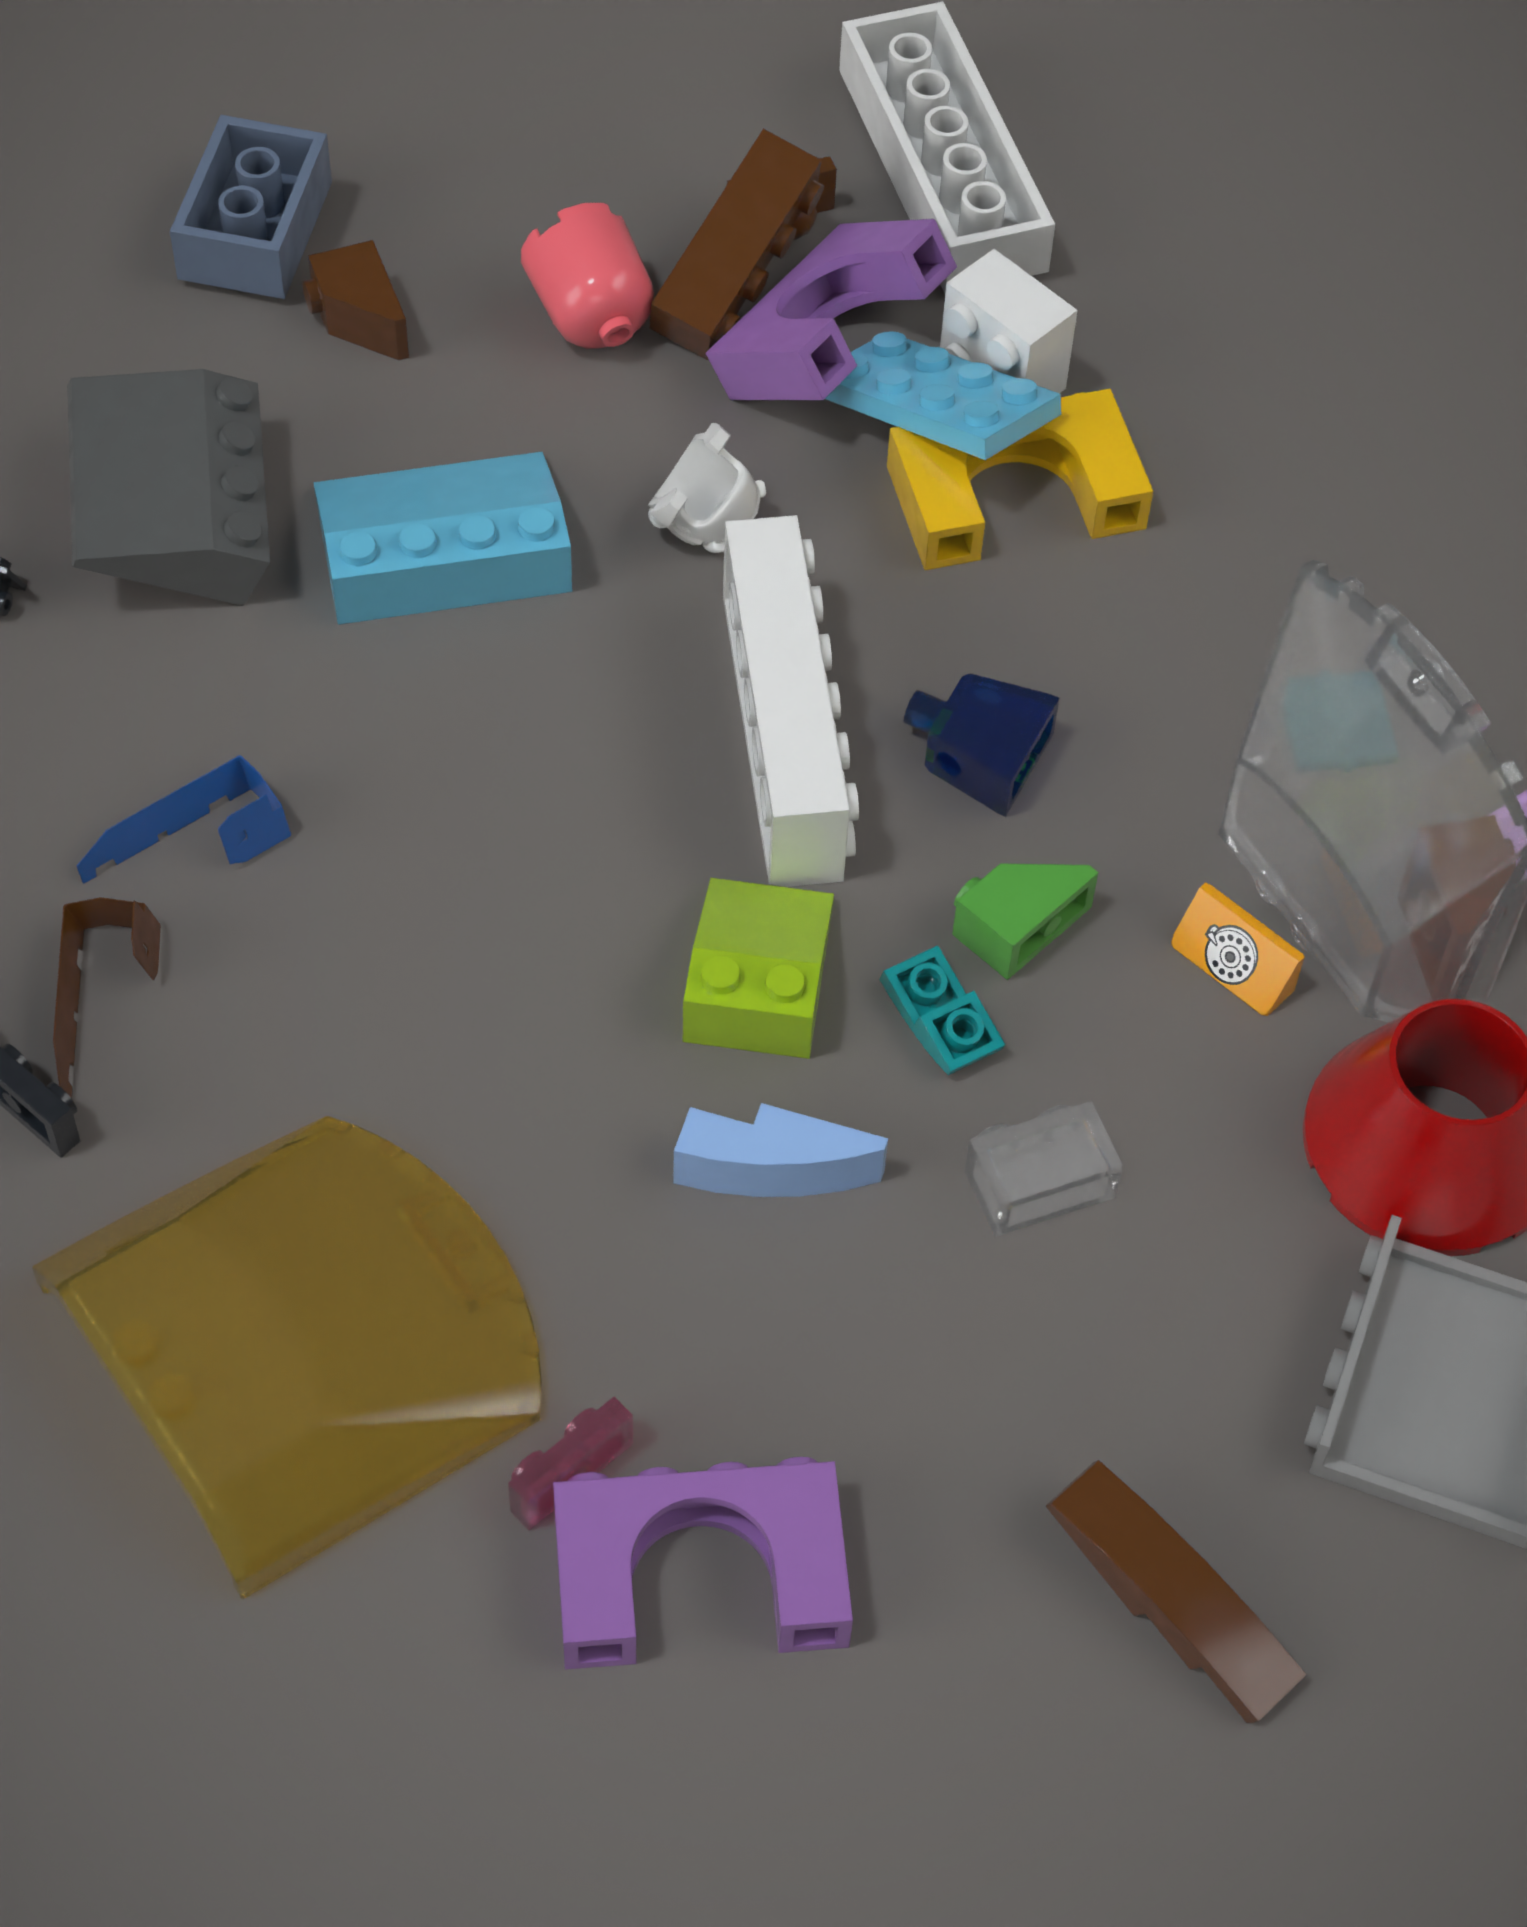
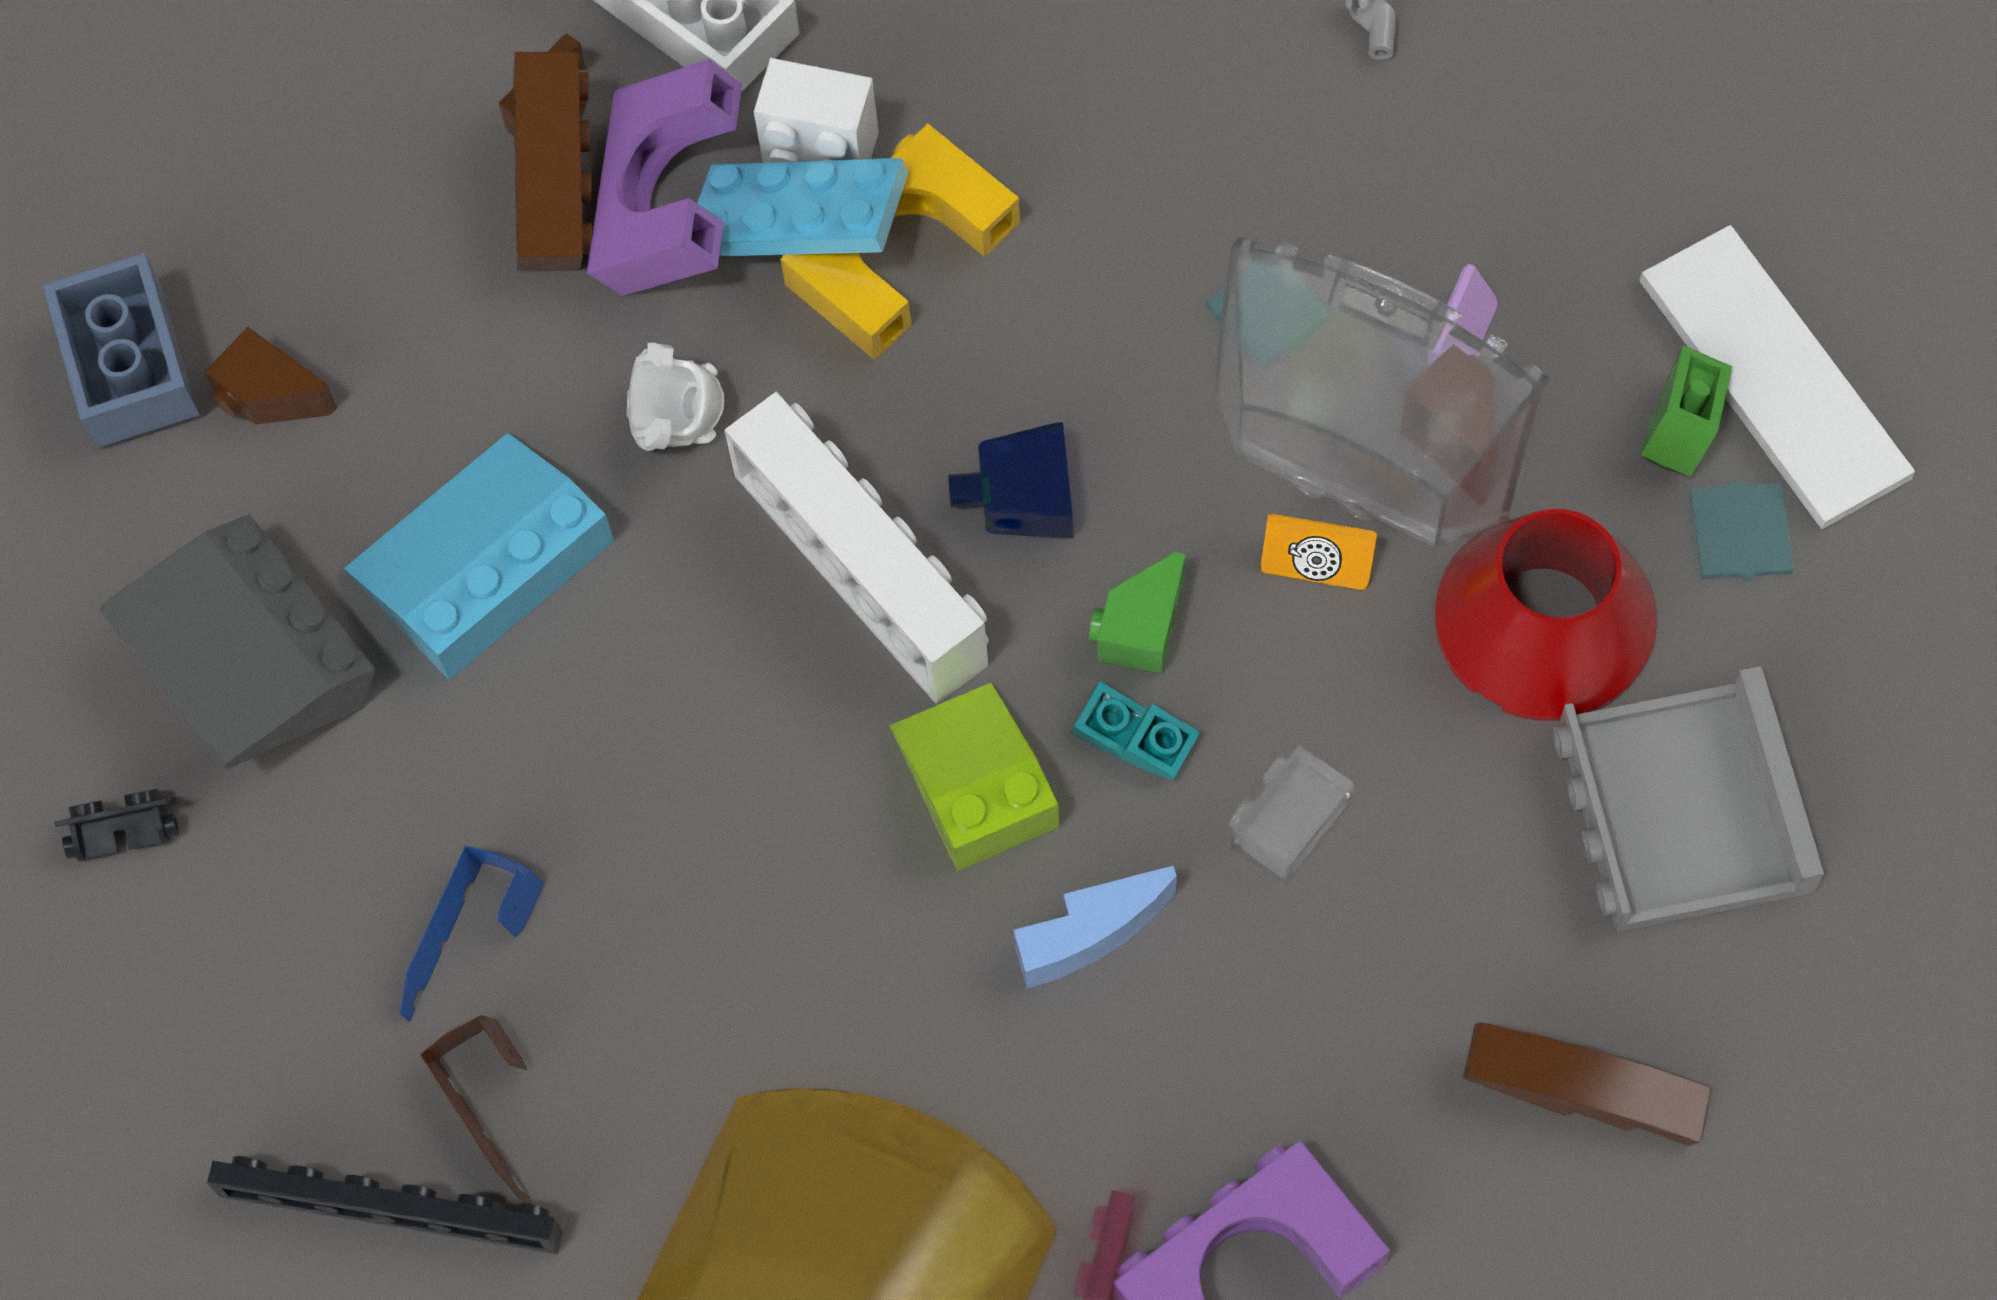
camera: 25 degrees left, 10 degrees up
(589, 276) = (450, 259): coral cylinder -> none

